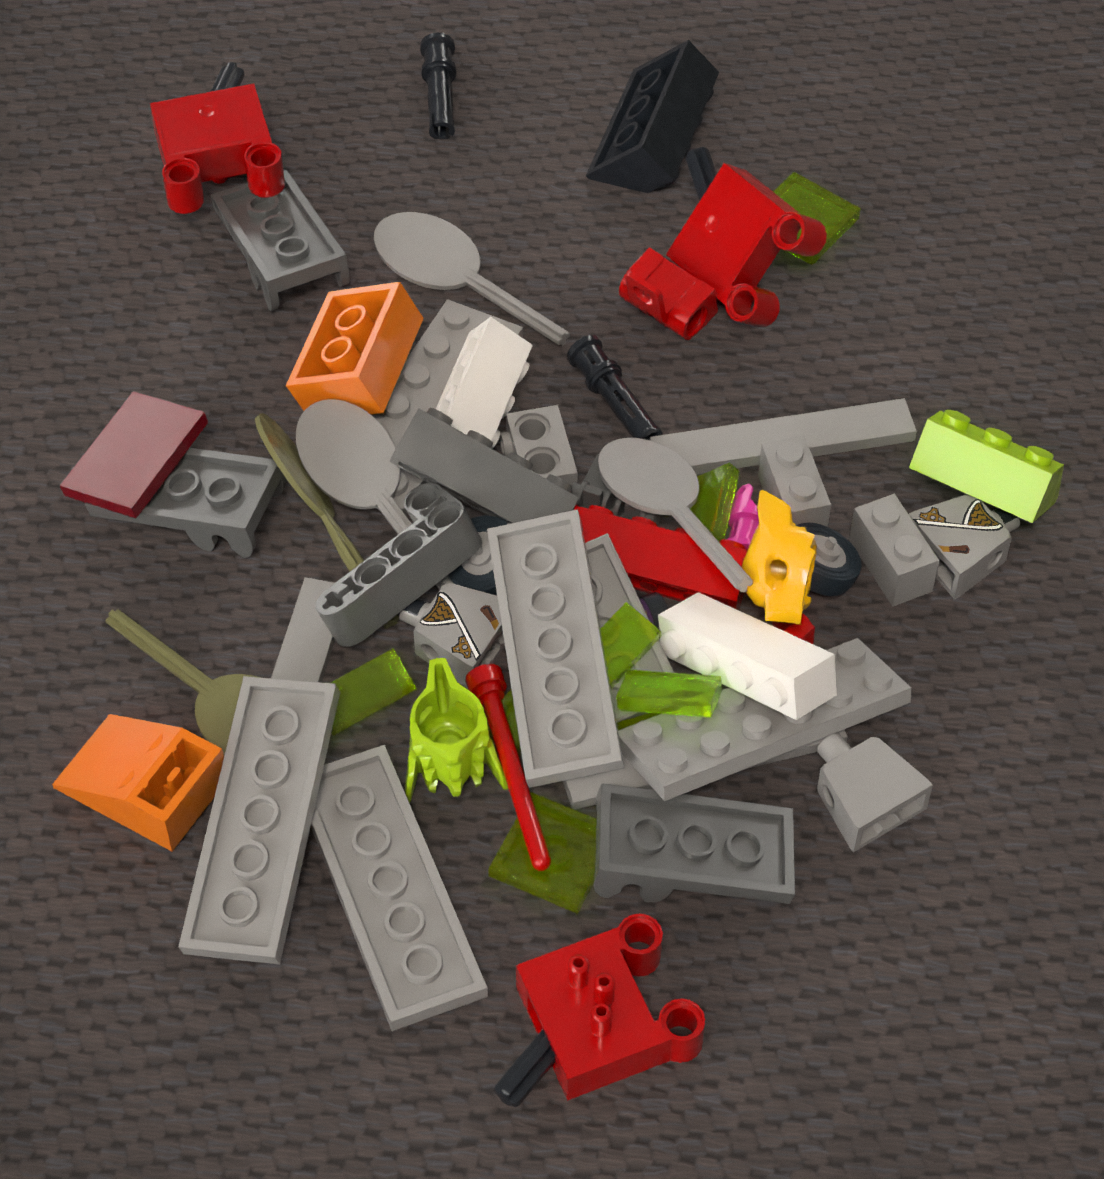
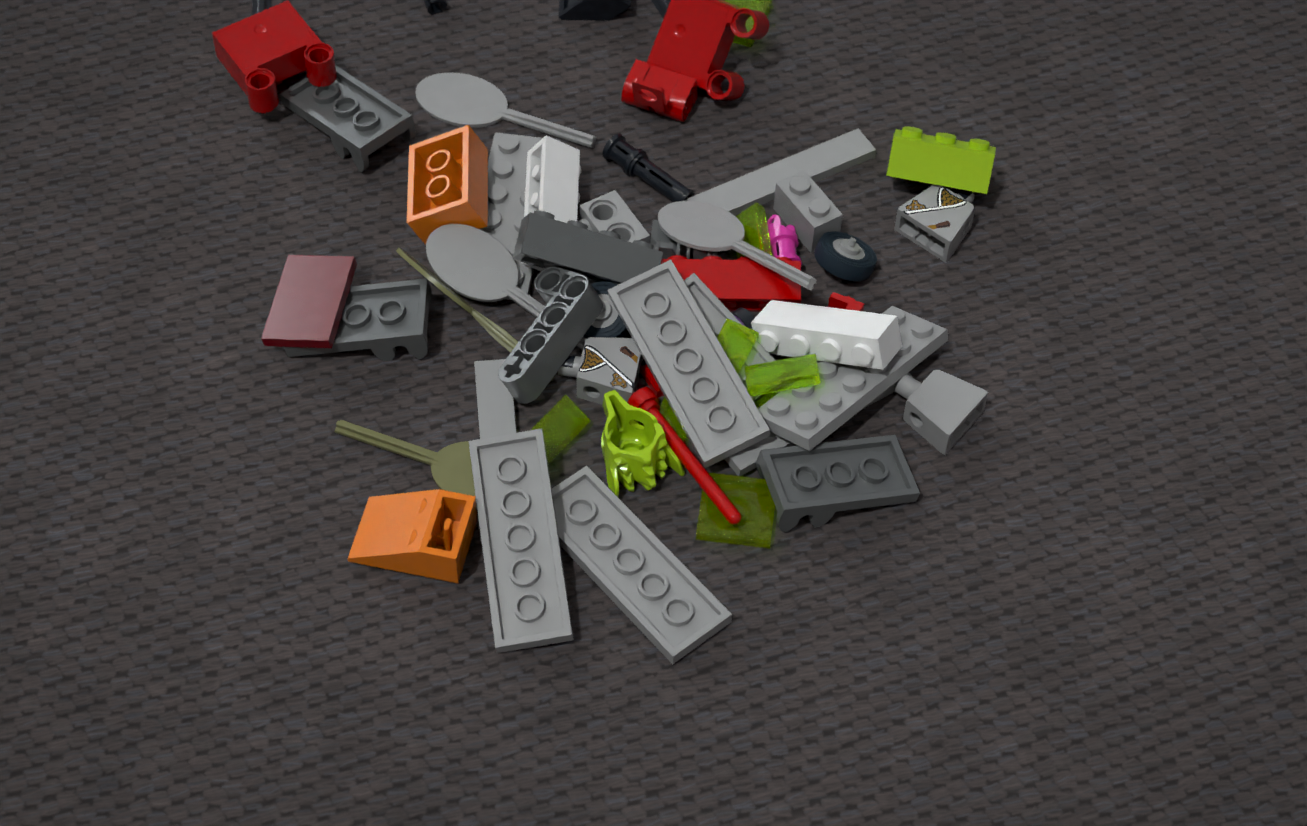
camera: 20 degrees left, 0 degrees up
(594, 1016) = (815, 613): red piece -> none
(780, 562) = (829, 261): yellow piece -> none
(893, 549) = (895, 237): light grey brick -> none

